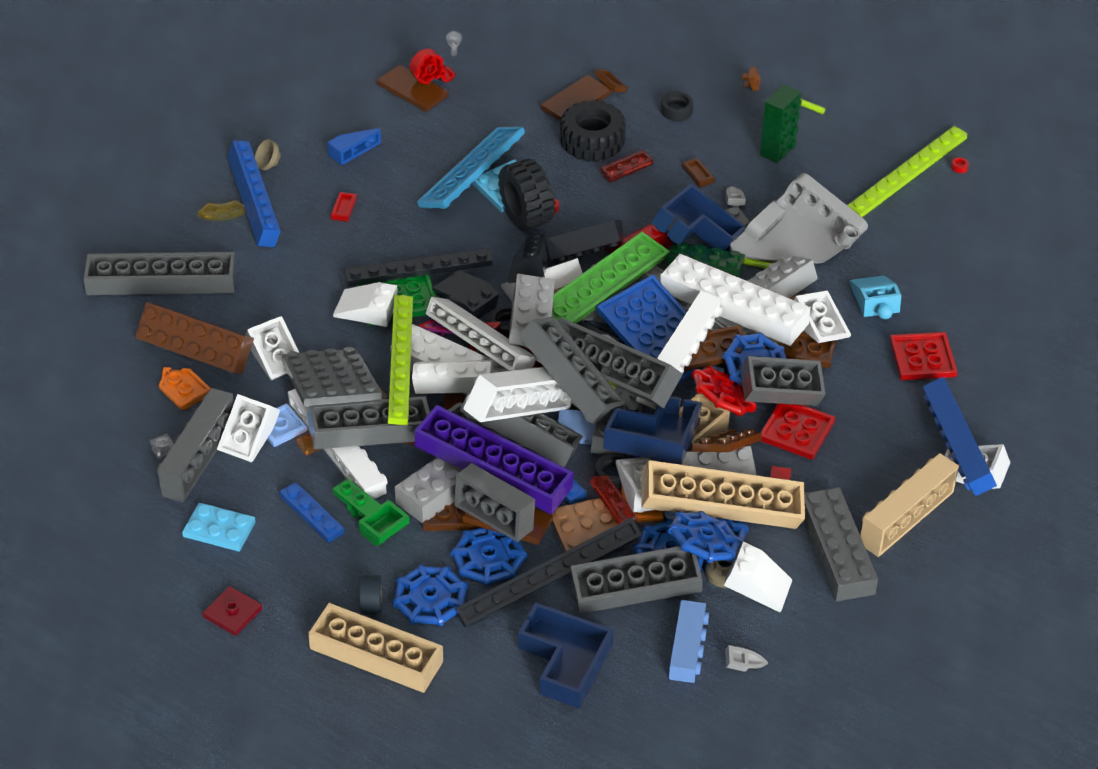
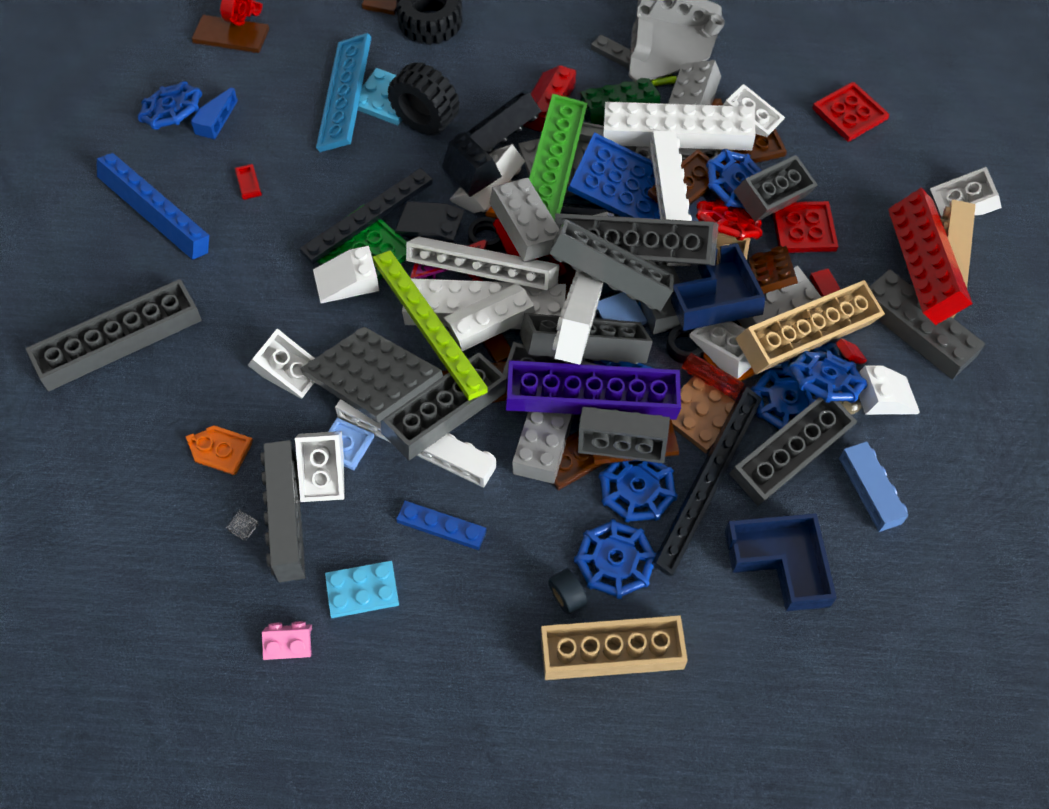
camera: 30 degrees left, 15 degrees up
(138, 534) = (286, 641): none -> bright pink bracket
(194, 338) = (200, 392): reddish brown brick -> none
(222, 212) = (130, 238): clear yellow tile -> none
(232, 611) = (440, 678): dark red plate -> none
(267, 155) = (134, 158): dark tan piece -> none
(305, 444) = (386, 451): clear orange tile -> none
(320, 124) = (169, 105): none -> blue plate
(378, 520) = (518, 501): green plate -> none
(626, 166) = (480, 34): clear red plate -> none
(697, 213) = (588, 60): dark blue piece -> none
(698, 172) = (543, 16): reddish brown tile -> none
(735, 197) = (593, 27): light grey plate -> none
(742, 659) = (928, 479): light grey plate -> none
(751, 534) = (851, 351): none -> red tile
(875, 485) = (929, 257): none -> red brick
(876, 296) = (775, 71): medium azure slope -> none
(959, 437) = (946, 175): blue brick -> none

